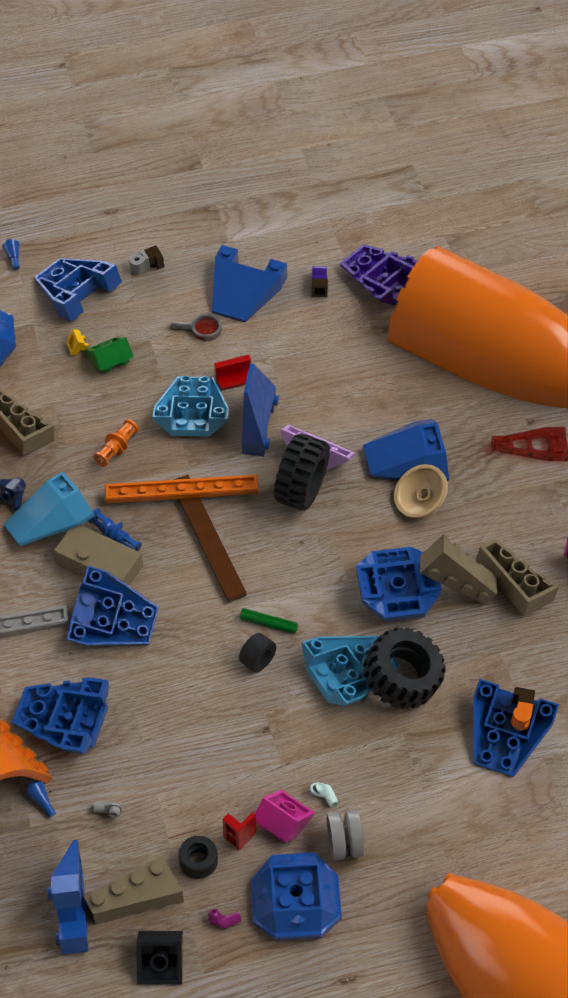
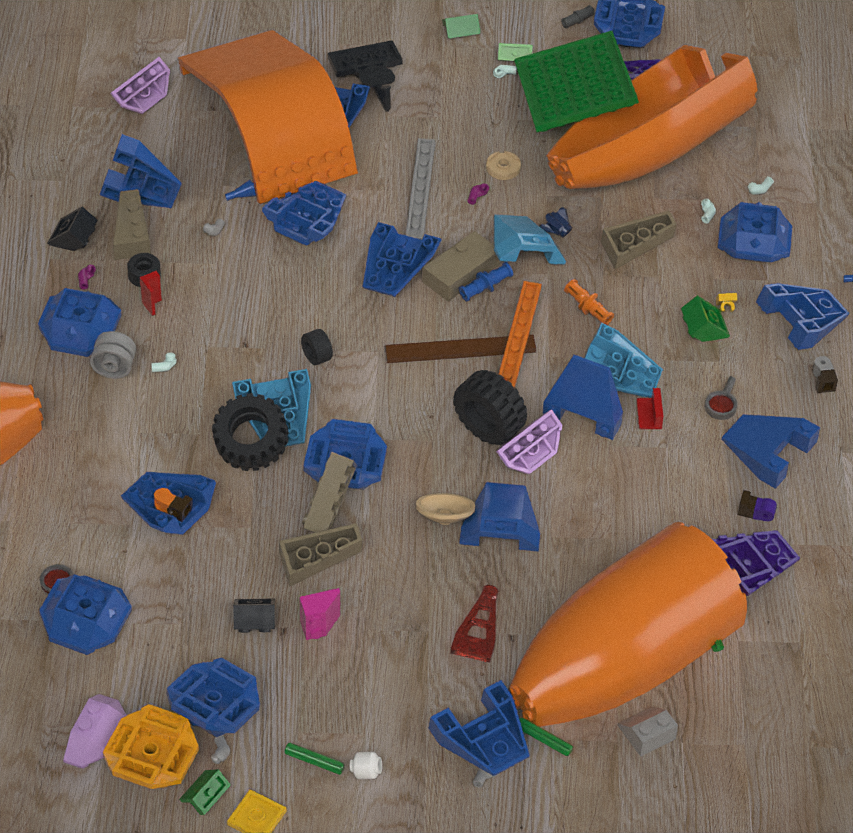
camera: 105 degrees right, 5 degrees down
(268, 620) = (351, 369): green axle -> none
(283, 815) = (155, 330): dark pink slope -> none

